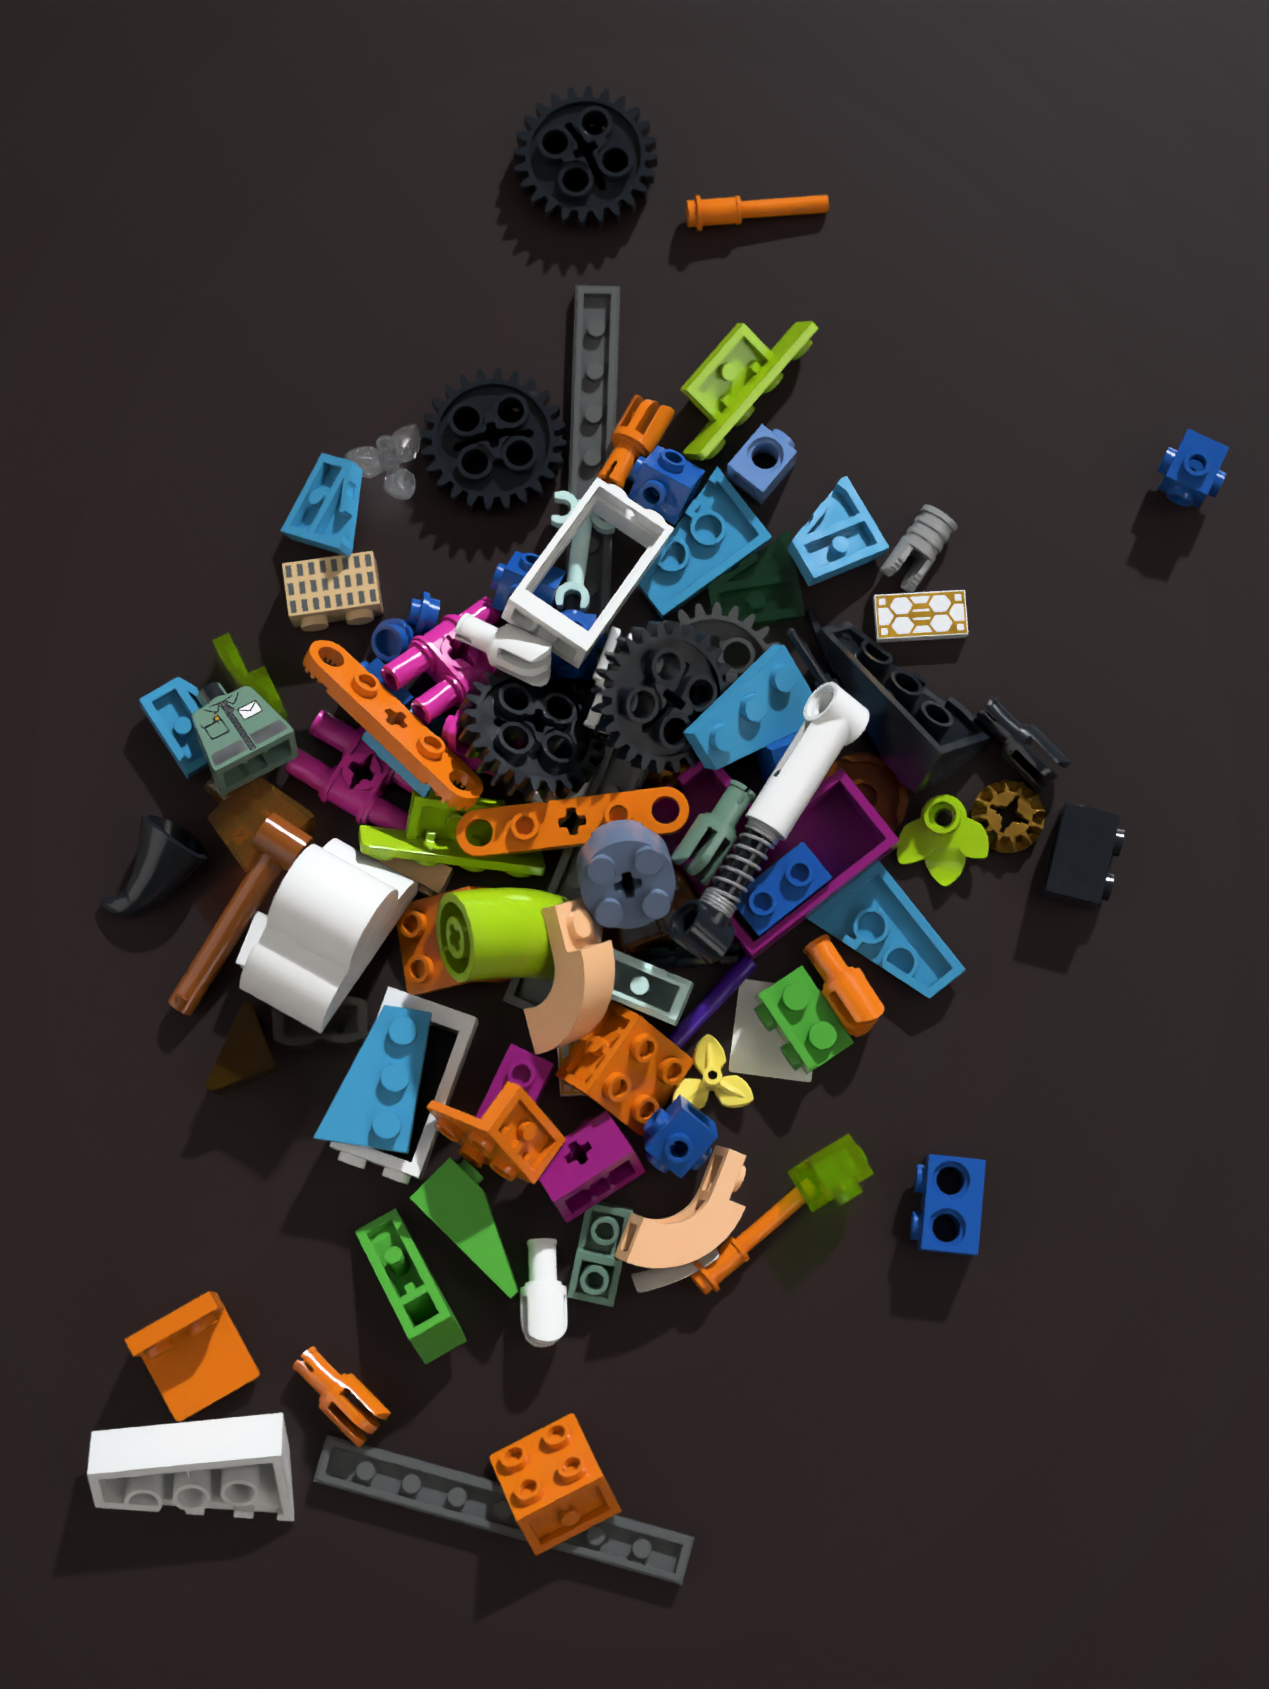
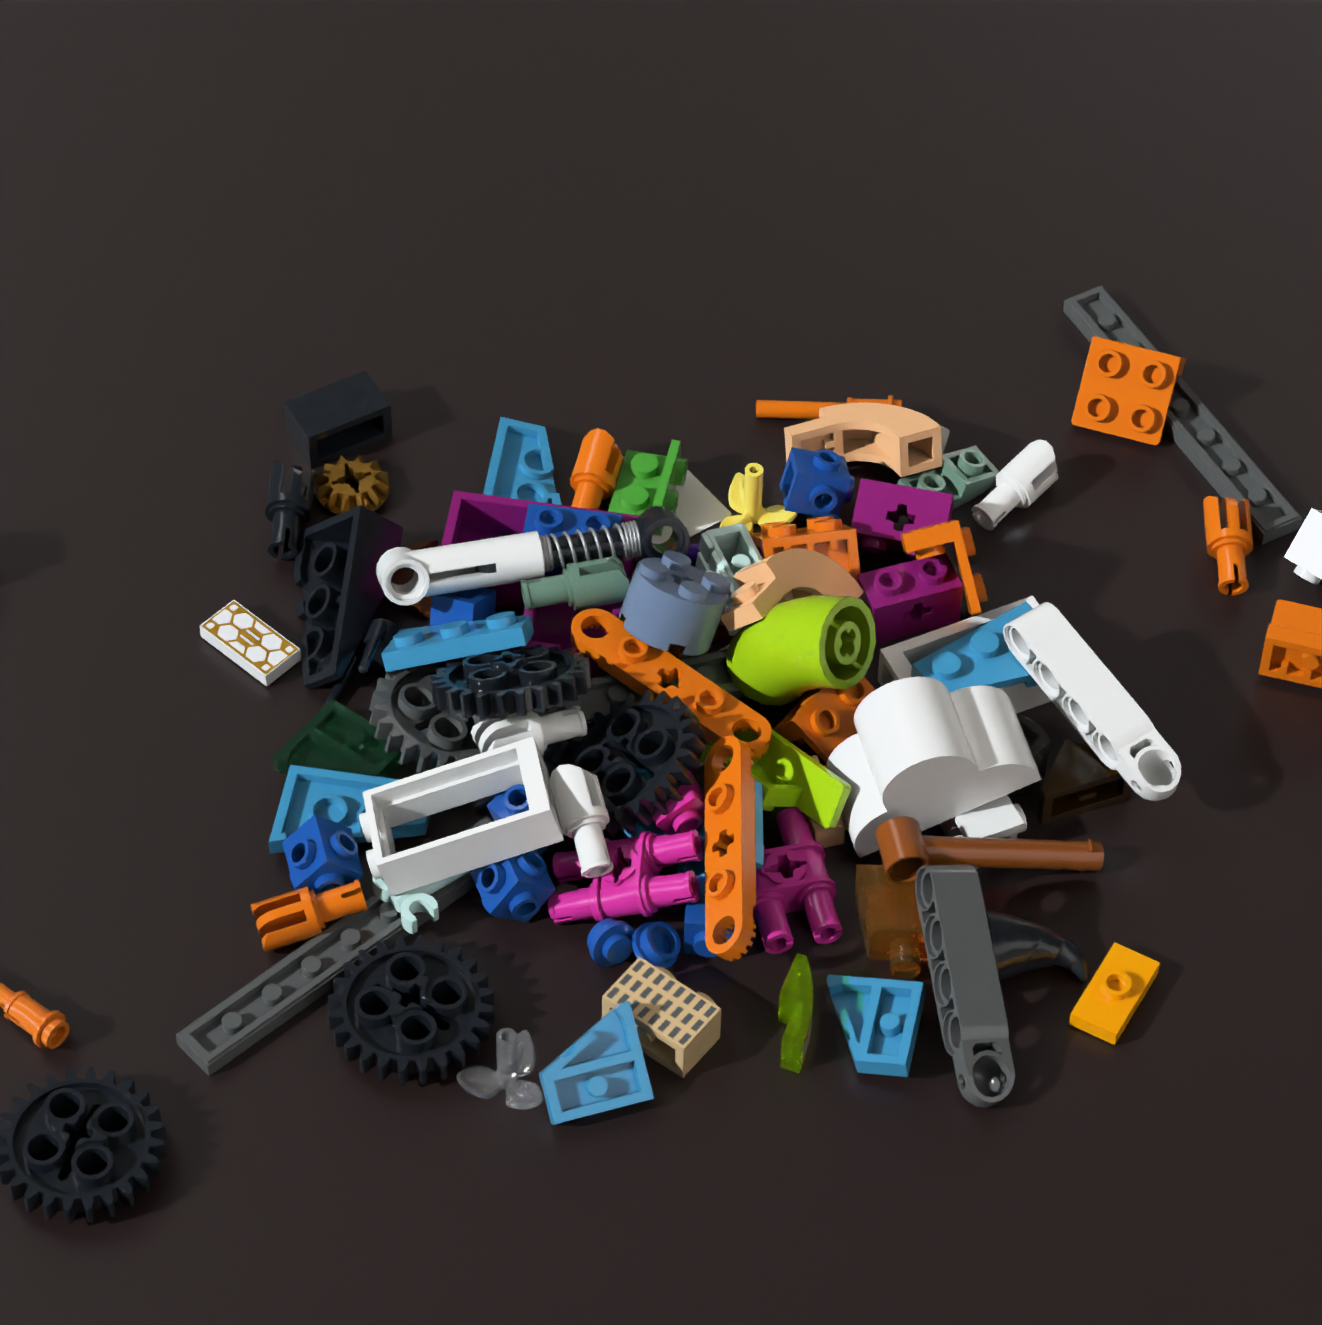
camera: 135 degrees left, 30 degrees down
(69, 905) = (1114, 993): none -> light orange plate
(154, 792) = (965, 981): none -> dark grey piece
(240, 736) = (856, 954): sand green torso -> none
(267, 1095) = (1093, 701): none -> white piece
(410, 1286) = (1108, 558): bright green slope -> none
(465, 1216) = (1023, 556): bright green slope -> none
(735, 379) = (176, 881): lime bracket -> none
(756, 481) = (232, 818): medium blue brick -> none
(832, 1174) = (736, 388): clear neon green brick -> none
(837, 537) = (243, 727): dark azure wing -> none
(923, 542) = (195, 675): light grey hinge -> none
(943, 846) = (417, 503): lime plate -> none
(962, 1207) = (676, 319): blue brick -> none

